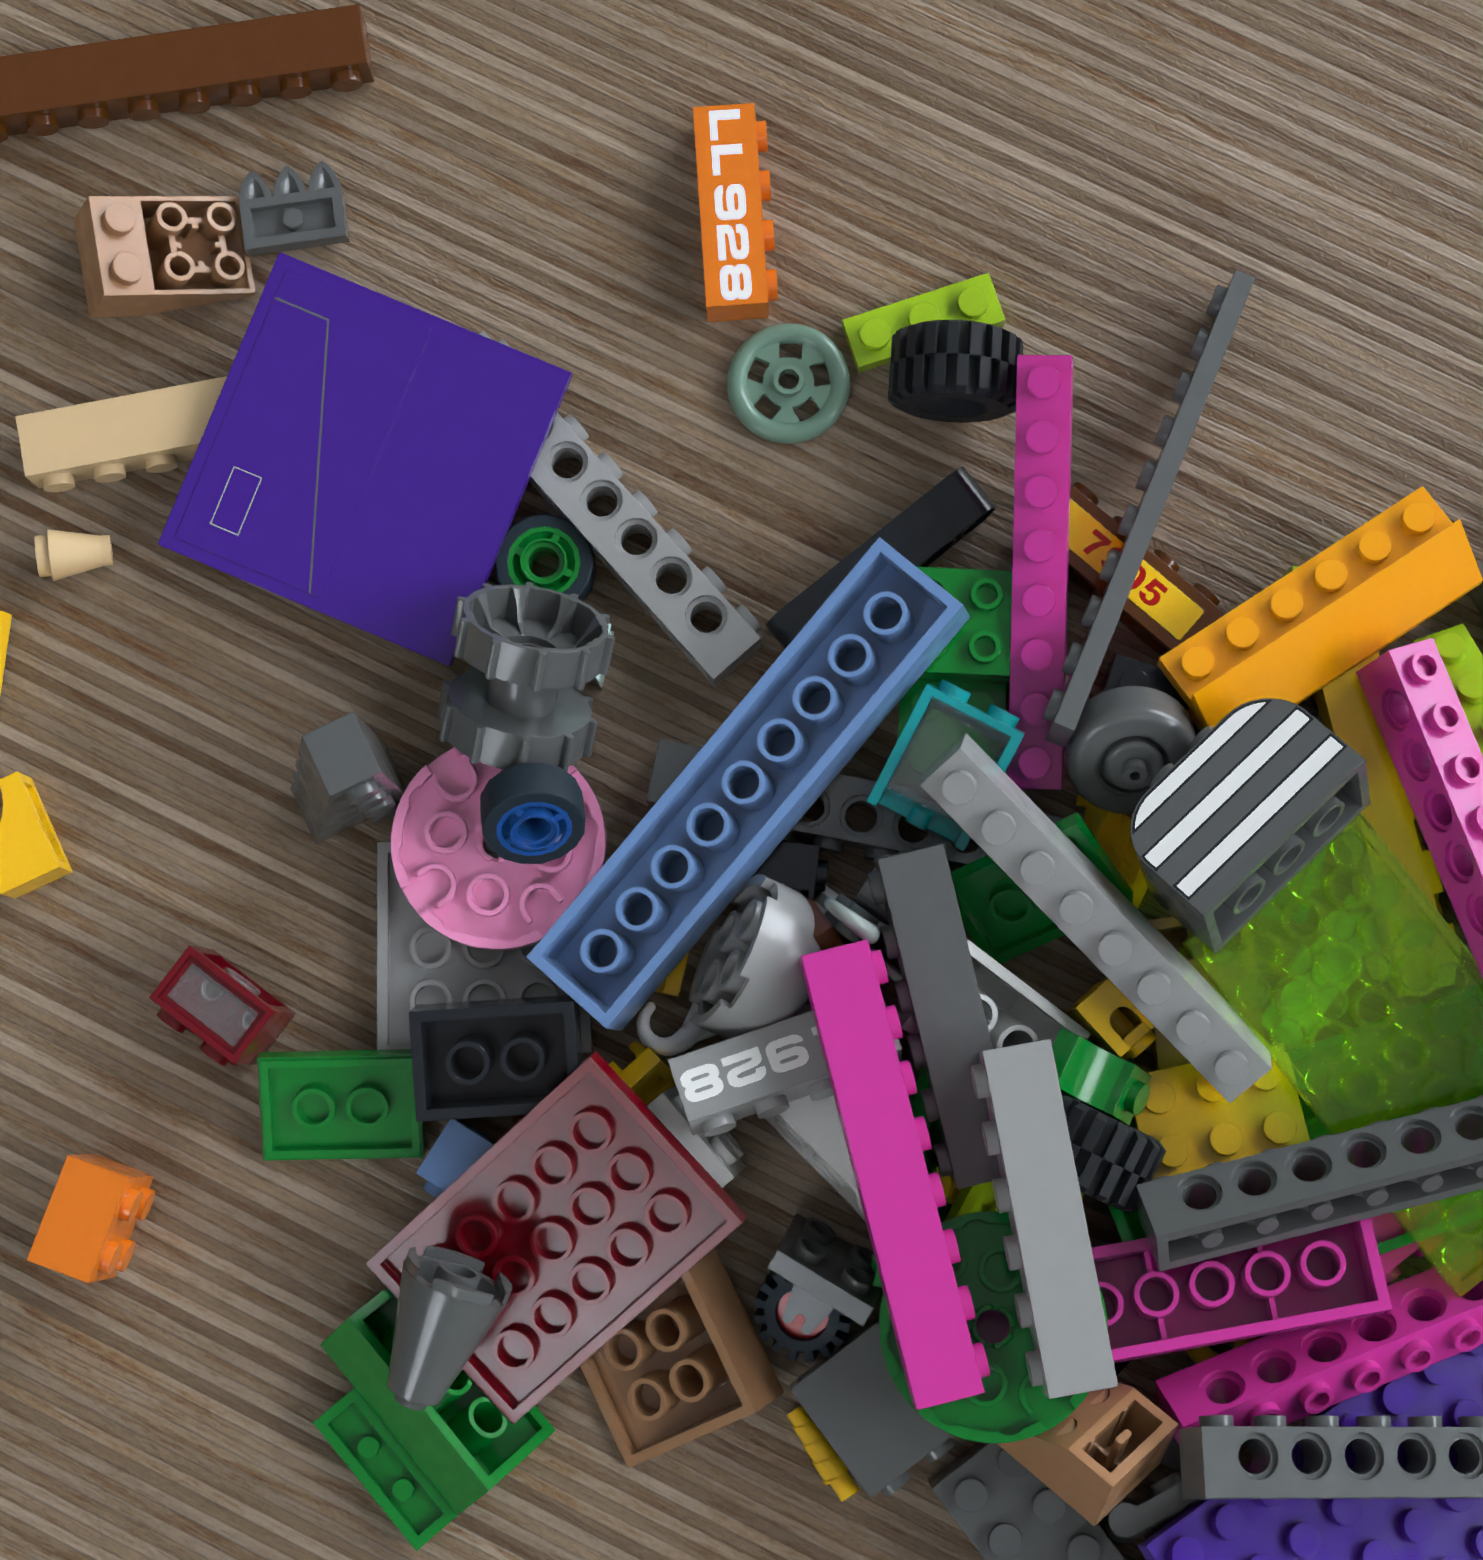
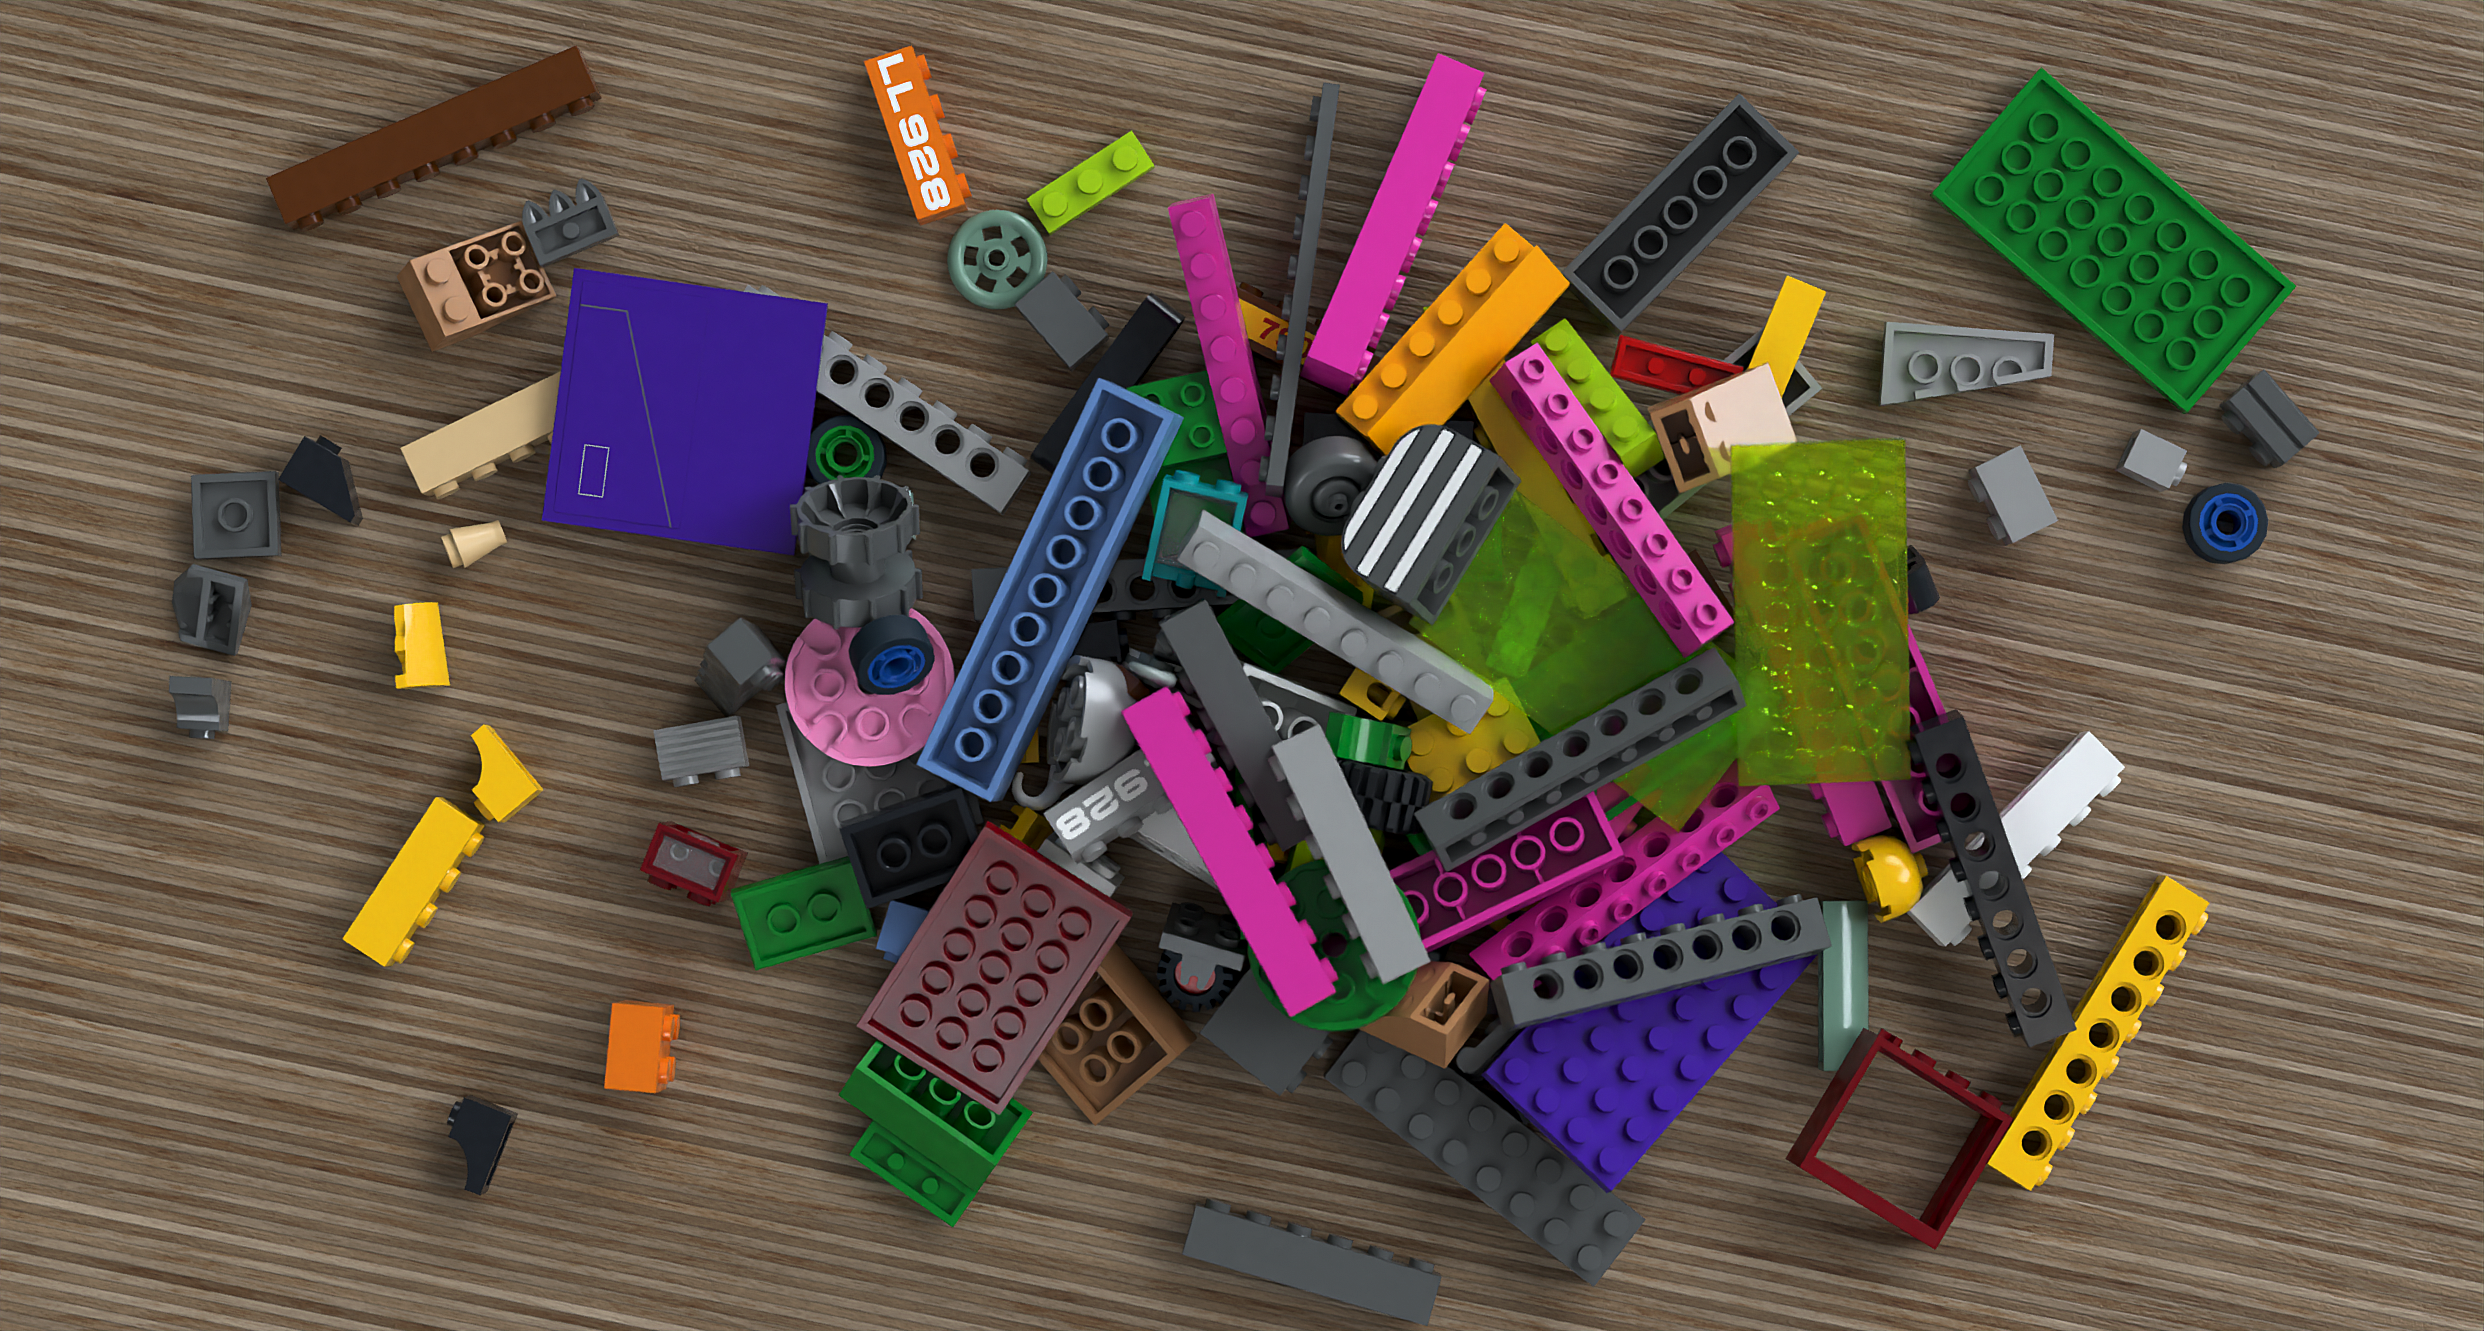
camera: 20 degrees left, 5 degrees up
(273, 872) = (701, 749): none -> light grey brick
(440, 1322) = (926, 1051): dark grey cone -> none
(822, 1454) = (1238, 1076): yellow animal -> none
(848, 472) = (1063, 320): none -> dark grey brick
(954, 371) = (1123, 222): black tyre -> none
(1285, 458) = (1388, 235): none -> dark pink brick

